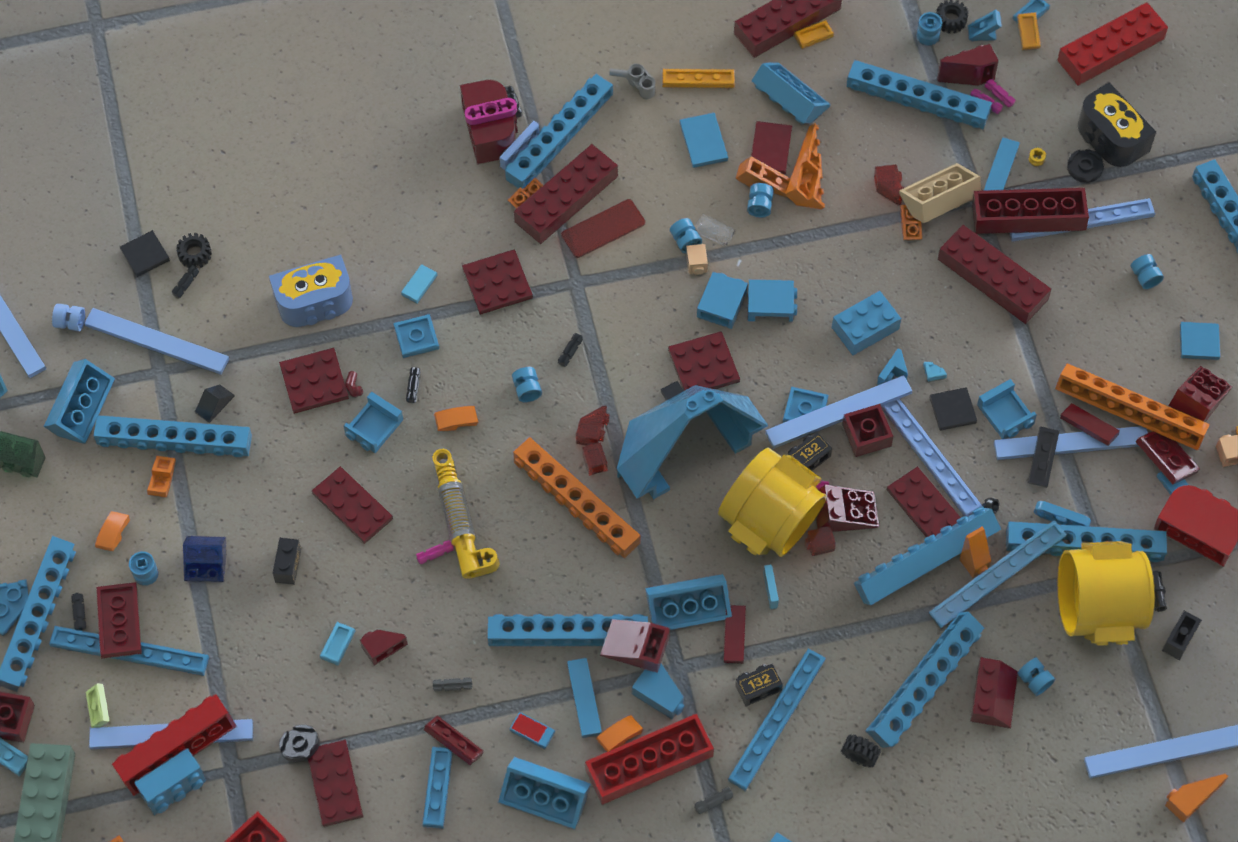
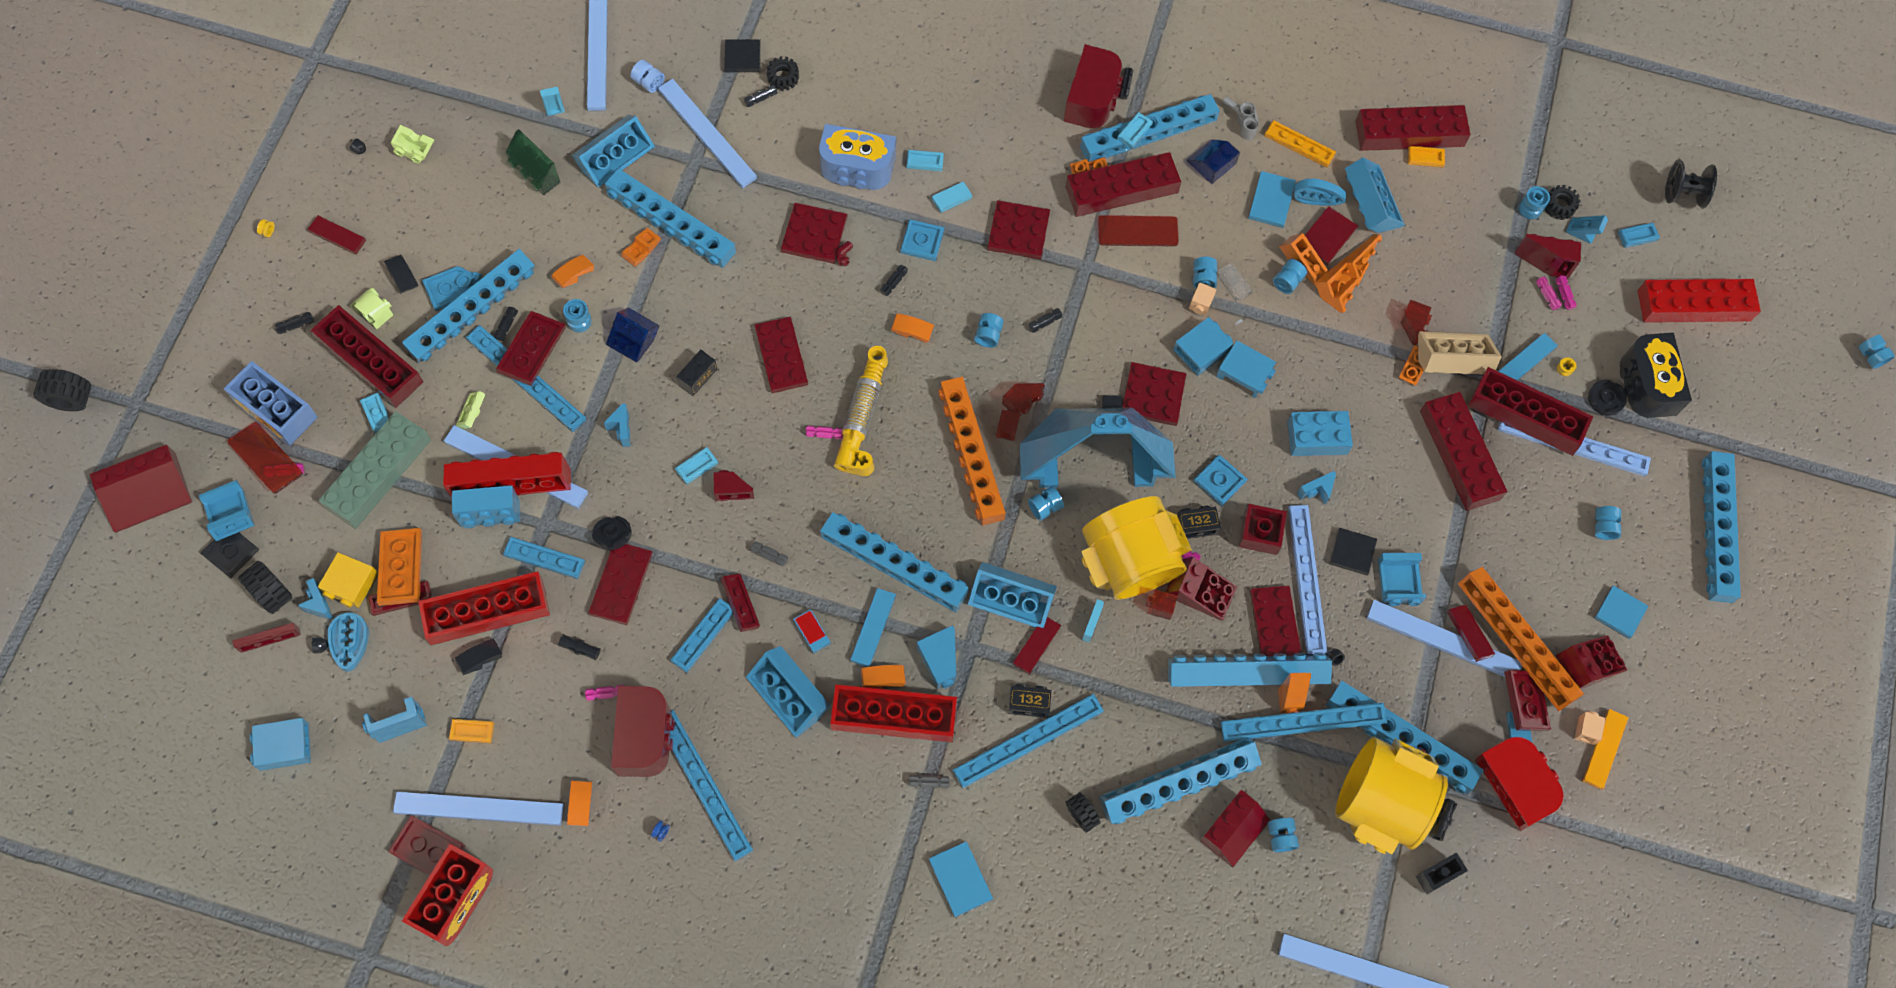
camera: 25 degrees right, 5 degrees up
(213, 402) = (721, 207): black slope -> none
(244, 642) = (620, 422): none -> dark azure slope
(249, 799) = (544, 558): none -> dark azure tile
(374, 263) = (925, 160): none -> medium azure tile
(374, 423) = (840, 296): dark azure panel -> none
(490, 117) = (1085, 71): dark pink beam -> none
(519, 144) = (1108, 121): light blue tile -> none
(549, 140) = (1135, 130): none -> medium azure tile
(632, 130) = (1214, 159): none -> clear blue slope
(636, 643) = (942, 606): slope -> none
(669, 508) = (1045, 503): none -> dark azure wheel
(742, 113) = (1319, 192): none -> dark azure piece
(834, 412) = (1241, 497): light blue tile -> none
(926, 92) = (1499, 258): dark azure brick -> none
(933, 371) = (1355, 509): medium azure tile -> none
(1029, 31) = (1626, 250): light orange tile -> none
(1043, 457) = (1409, 639): black plate -> none
(1060, 515) = (1394, 701): dark azure beam -> none

